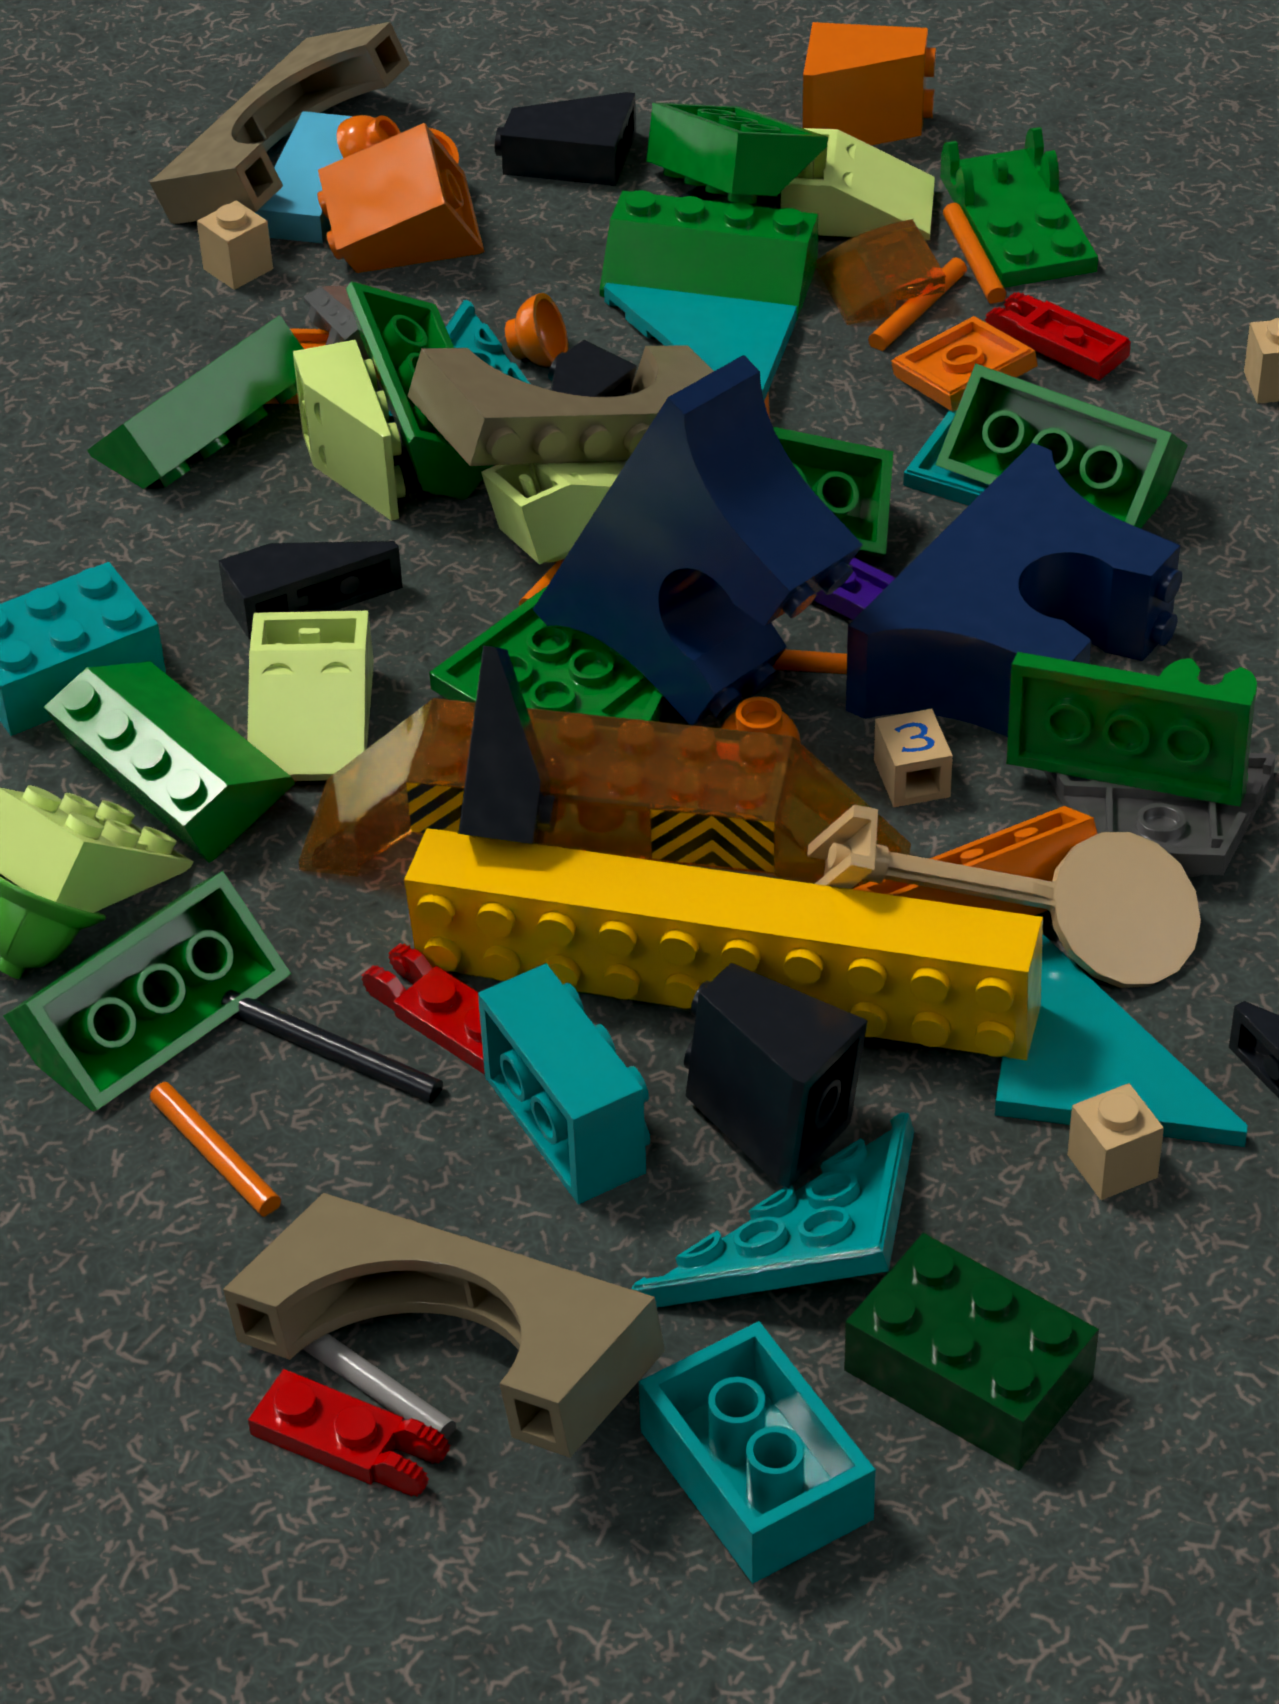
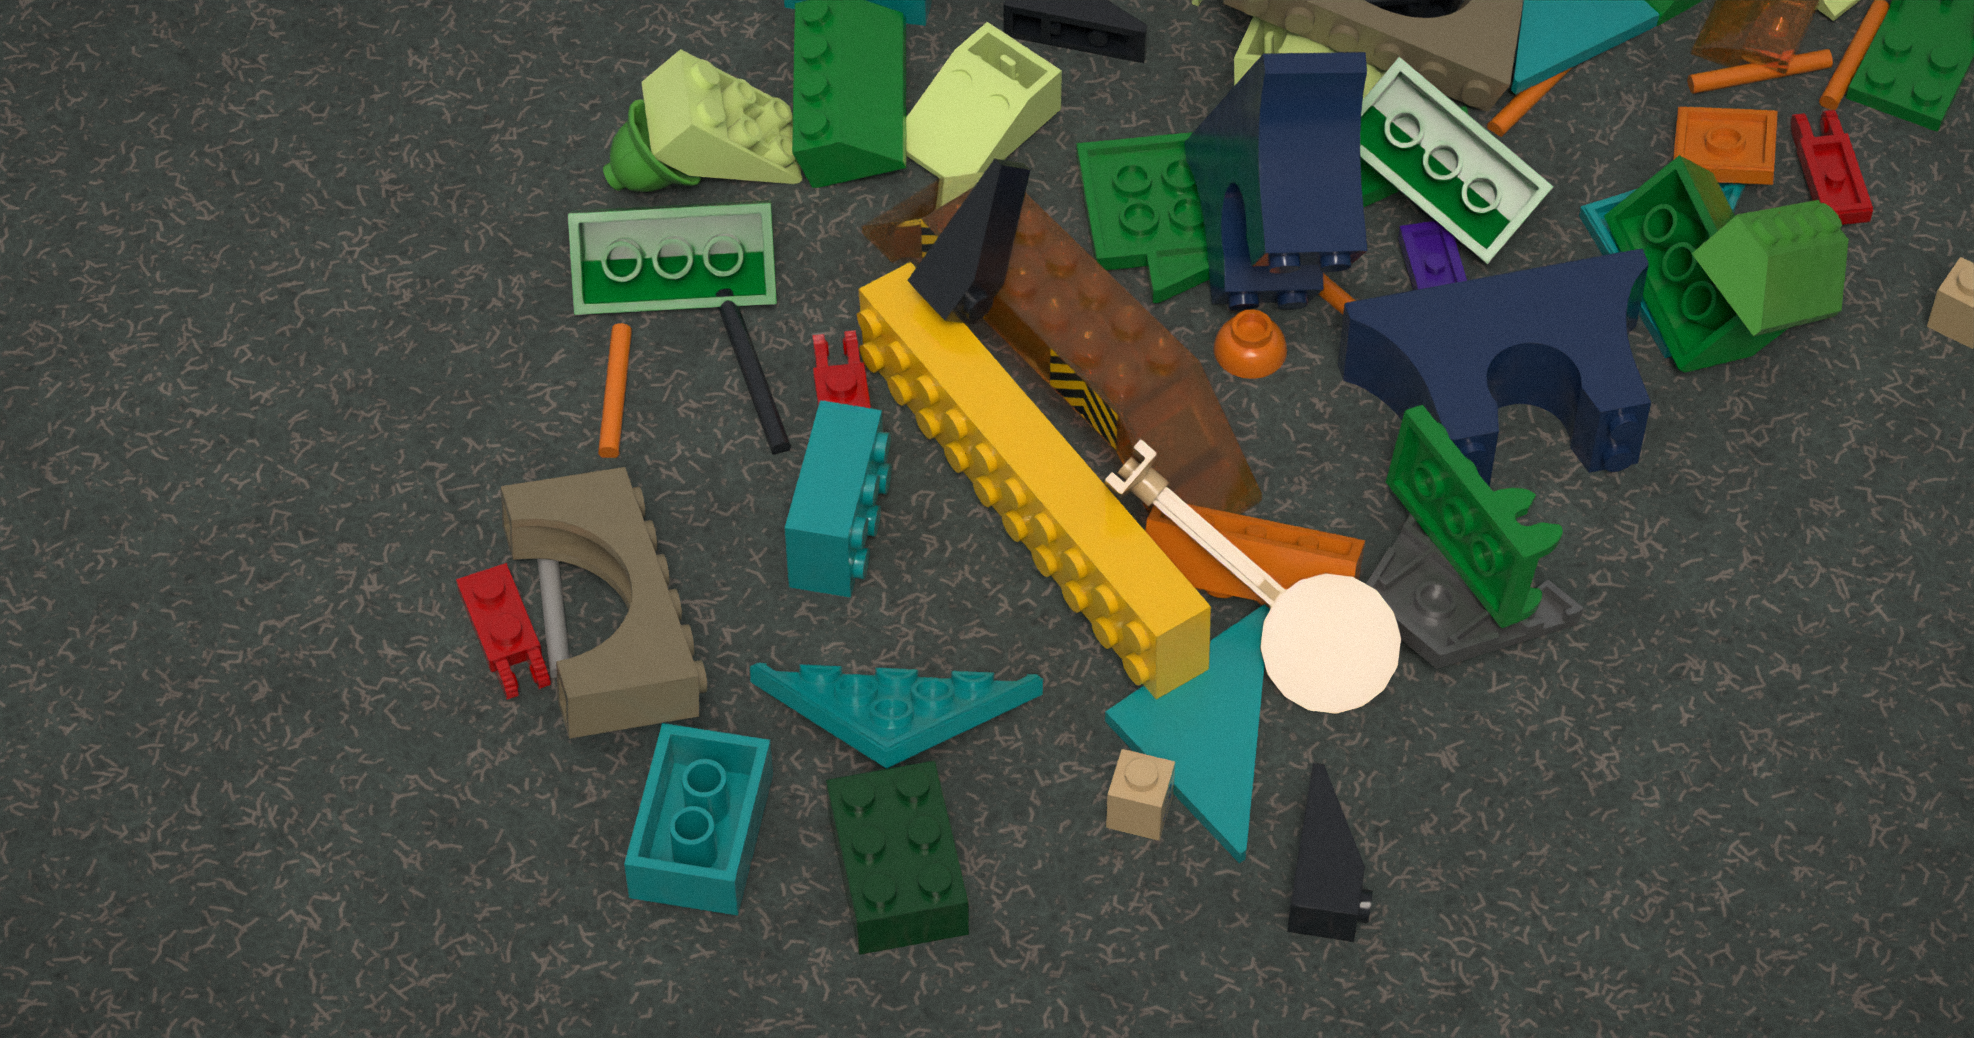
camera: 40 degrees right, 10 degrees up
(773, 1069) = (970, 588): black slope -> none
(913, 757) = (1326, 432): tan brick -> none
(1146, 386) = (1779, 265): none -> bright green slope

